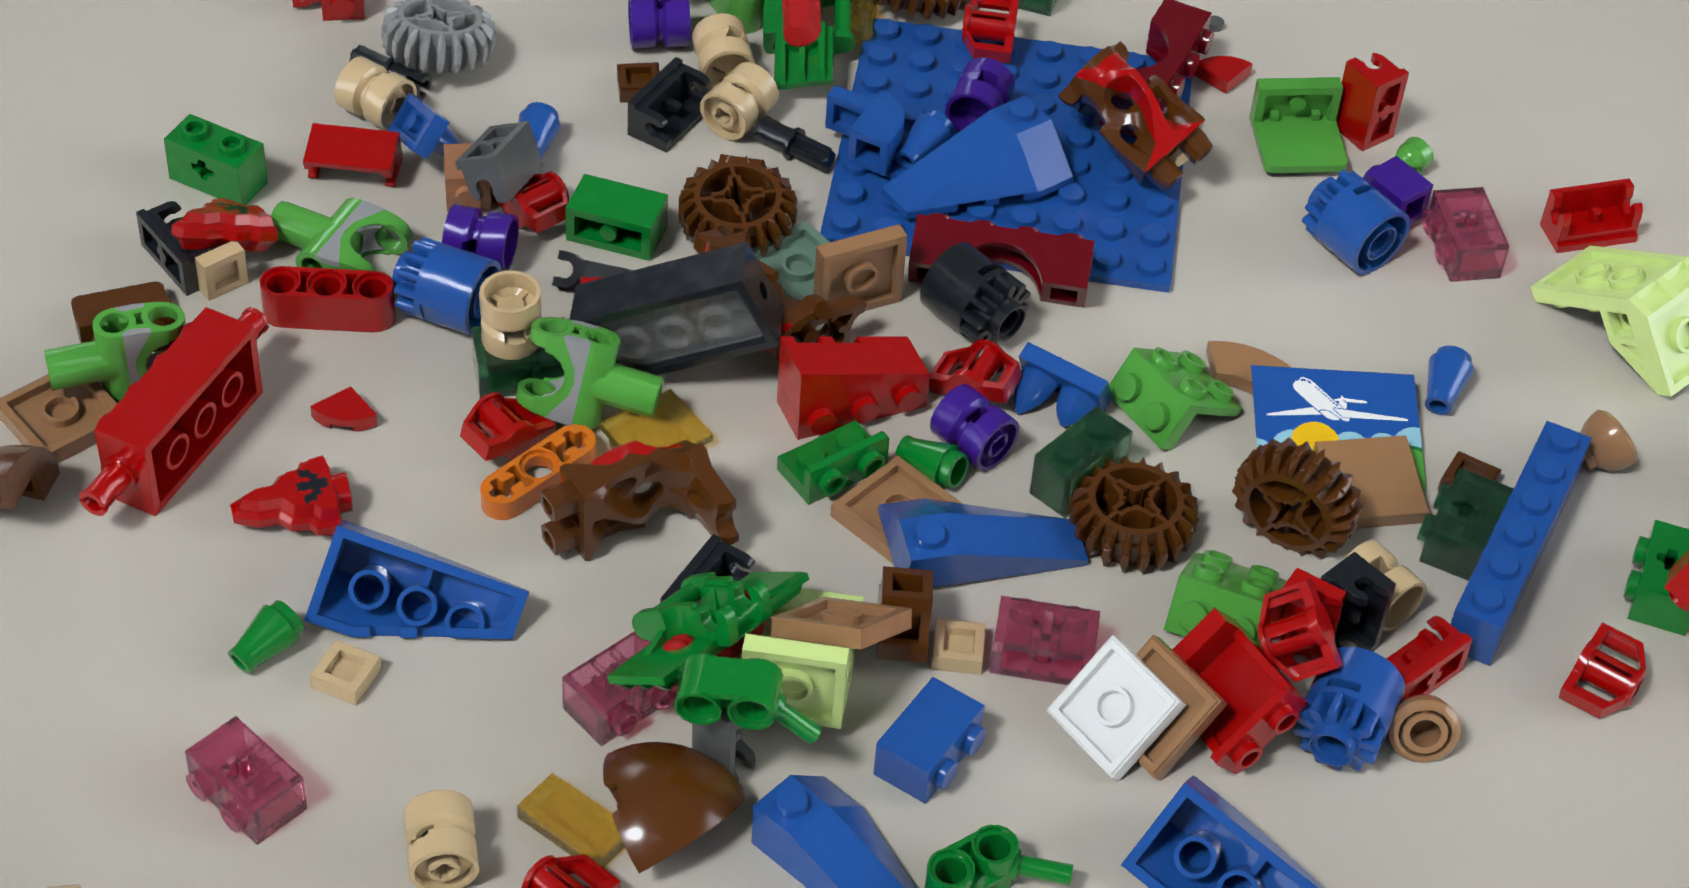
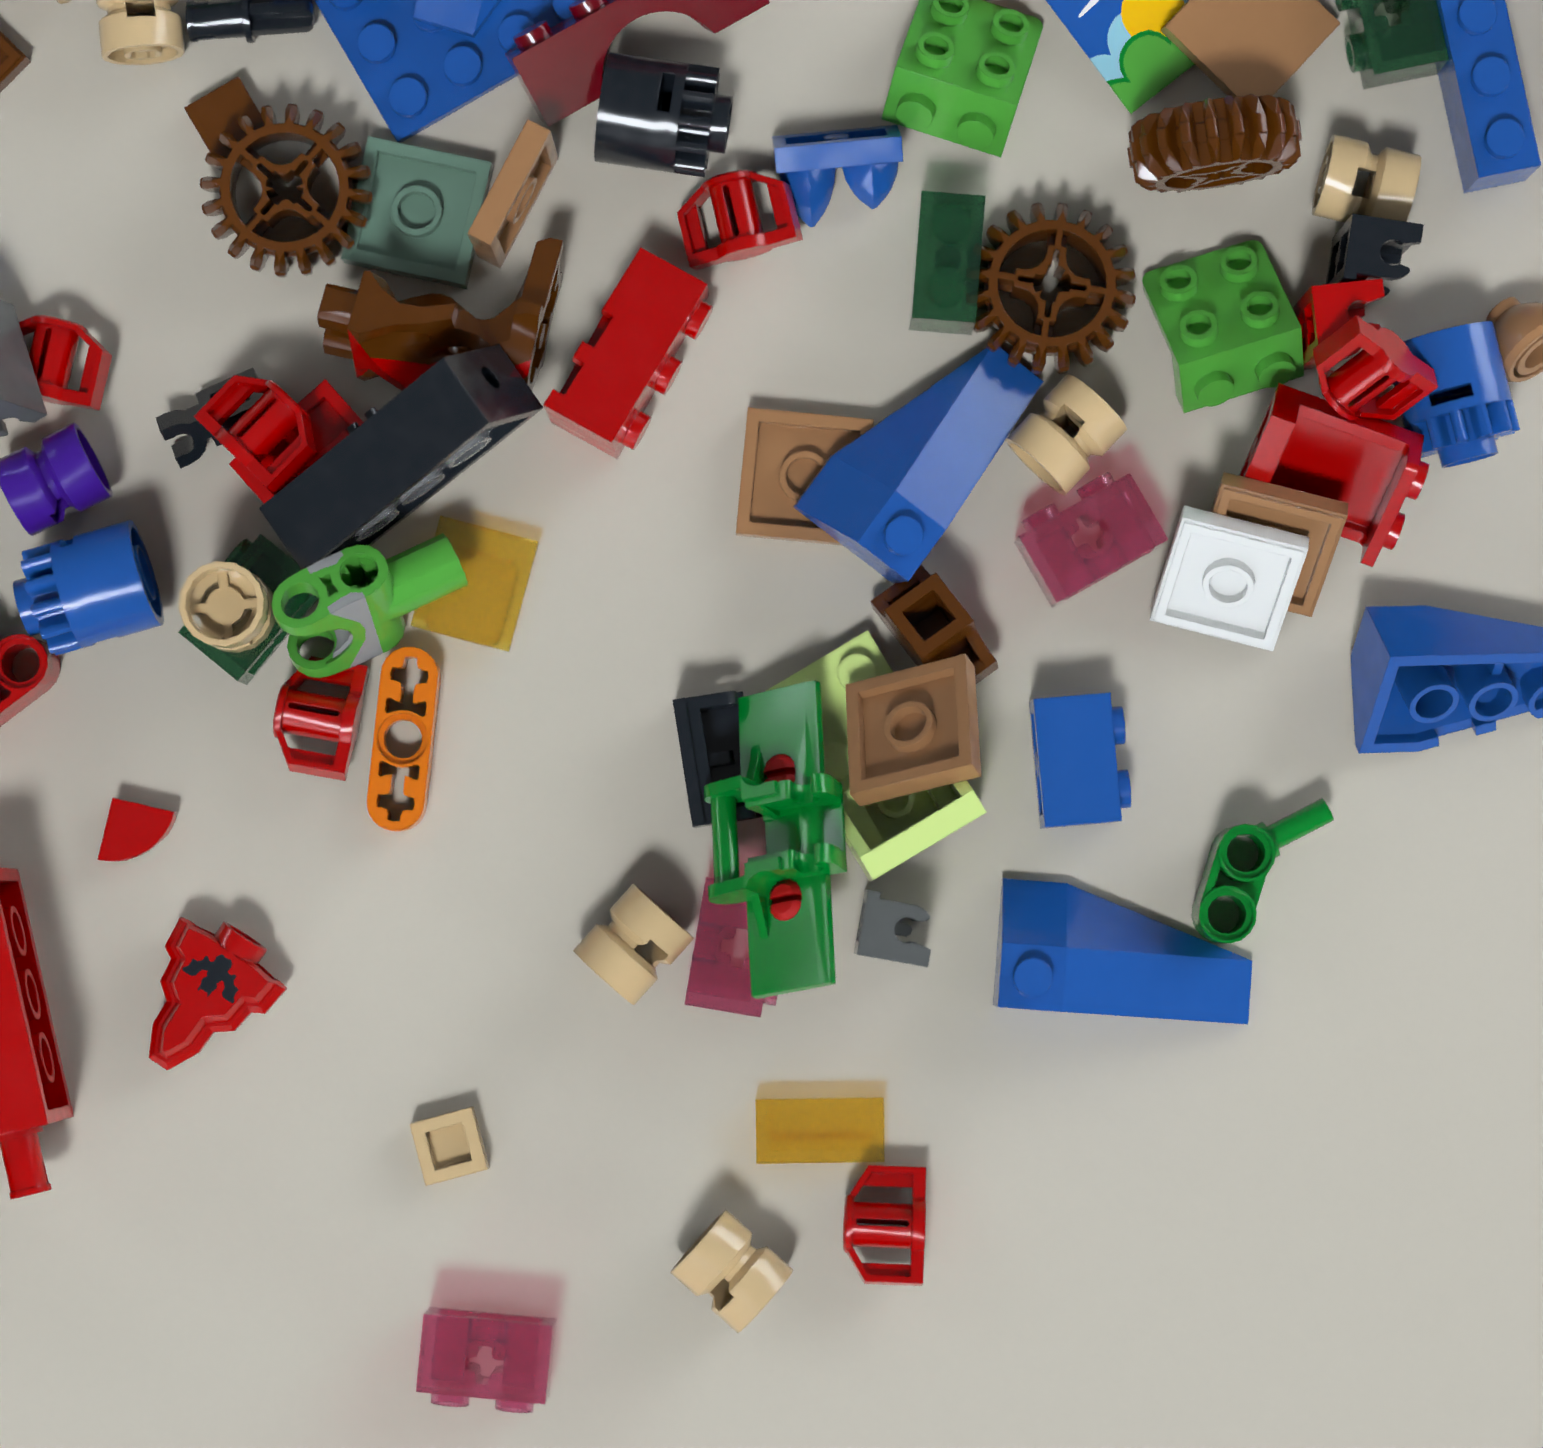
camera: 35 degrees left, 40 degrees up
(268, 634) = (341, 1177): green cone -> none
(397, 589) = (405, 1013): blue wedge -> none
(546, 640) = (633, 944): none -> tan wheel
(602, 498) = (528, 714): reddish brown hips -> none
(613, 256) = (260, 429): none -> red piece
(616, 217) = (163, 311): green brick -> none
(667, 106) = (62, 79): black hinge -> none
(667, 797) = (900, 1050): reddish brown brick -> none
(745, 688) = (917, 939): green beam -> none
(833, 461) = (686, 466): green bracket -> none
(936, 460) = (790, 384): green cone -> none
(958, 646) = (1003, 607): tan tile -> none
(977, 427) = (780, 306): dark purple wheel -> none
(1079, 579) = (1050, 450): none -> tan wheel
(1430, 661) = (1463, 257): red hinge -> none

